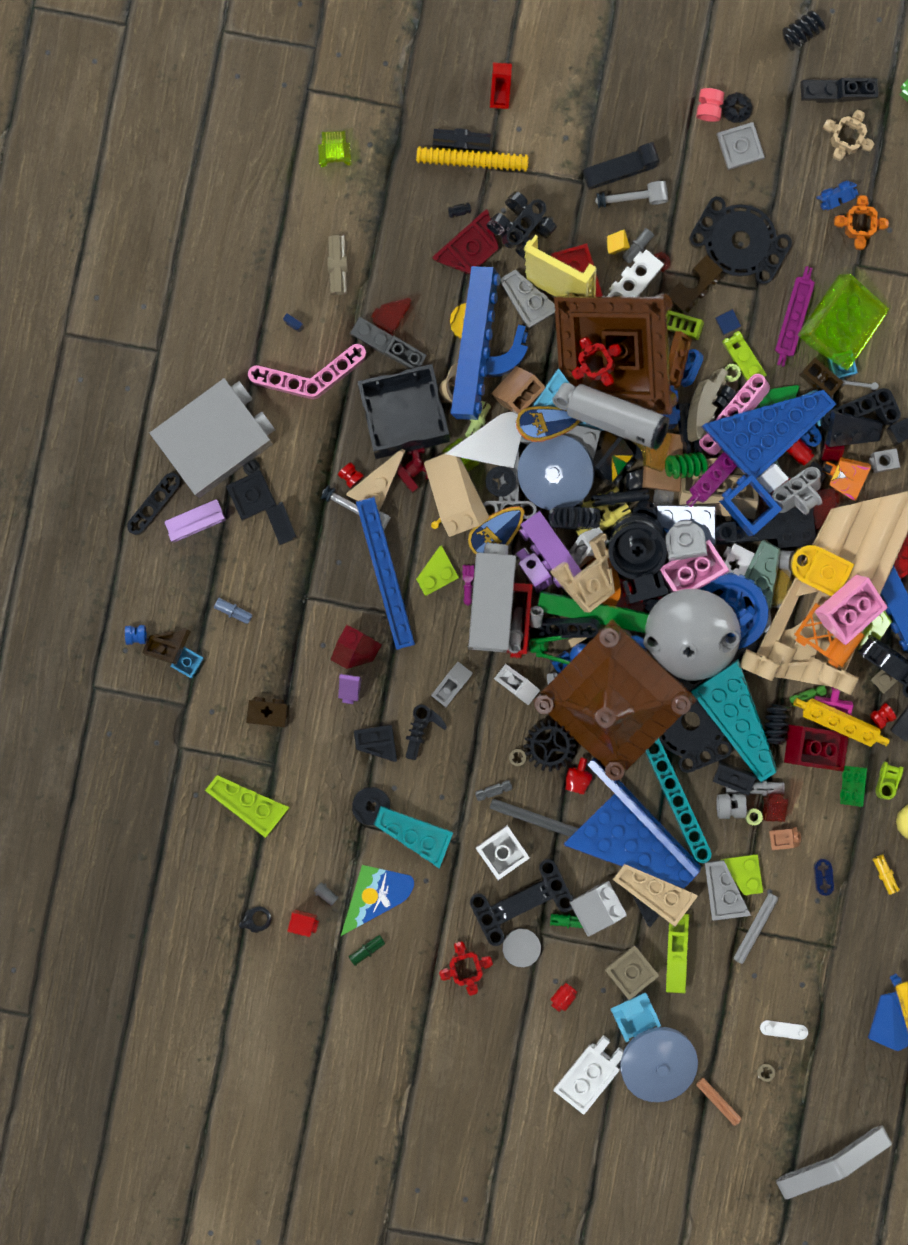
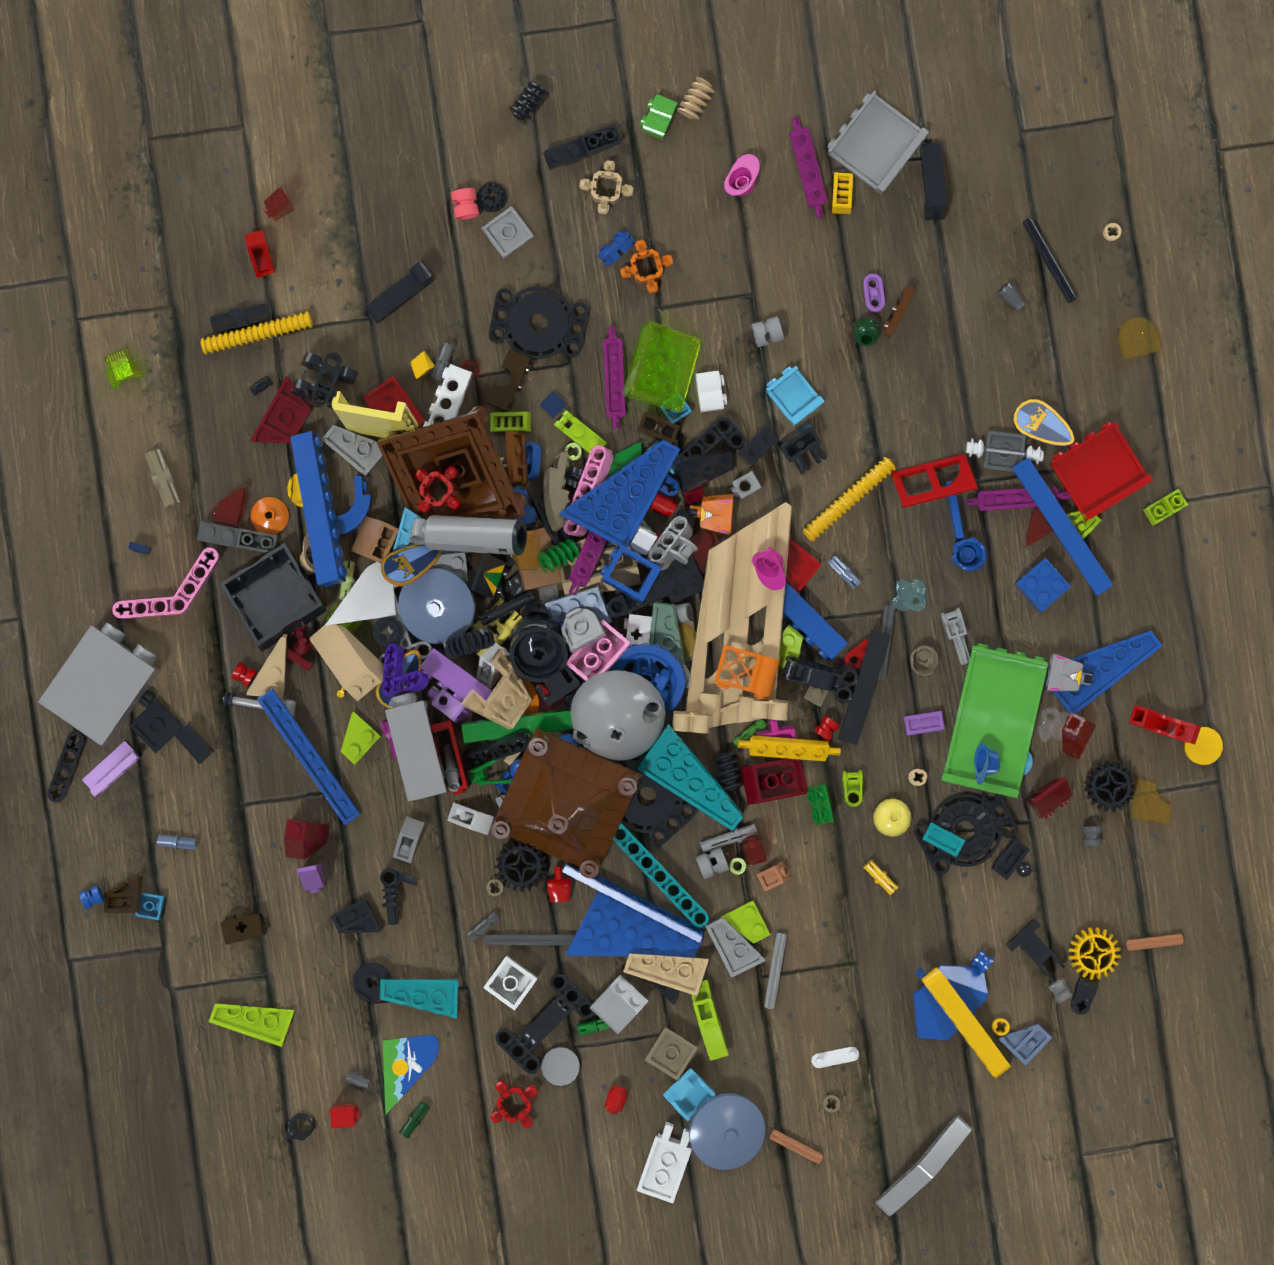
camera: 25 degrees left, 0 degrees up
(425, 344) = (279, 518): none -> orange dish
(491, 531) = (394, 684): none -> dark purple beam
(534, 45) = (277, 205): none -> clear red slope
(536, 617) = (465, 749): light grey hinge -> none
(656, 193) = (442, 304): light grey piece -> none
(734, 778) = (705, 835): black panel -> none
(819, 878) = (818, 902): clear blue beam -> none
(823, 569) = (720, 611): yellow tile -> none
(851, 609) = (758, 639): bright pink slope -> none
(874, 386) = (712, 417): light grey hinge -> none
(881, 360) = (710, 391): none -> white brick
(885, 546) = (769, 568): none -> dark pink piece

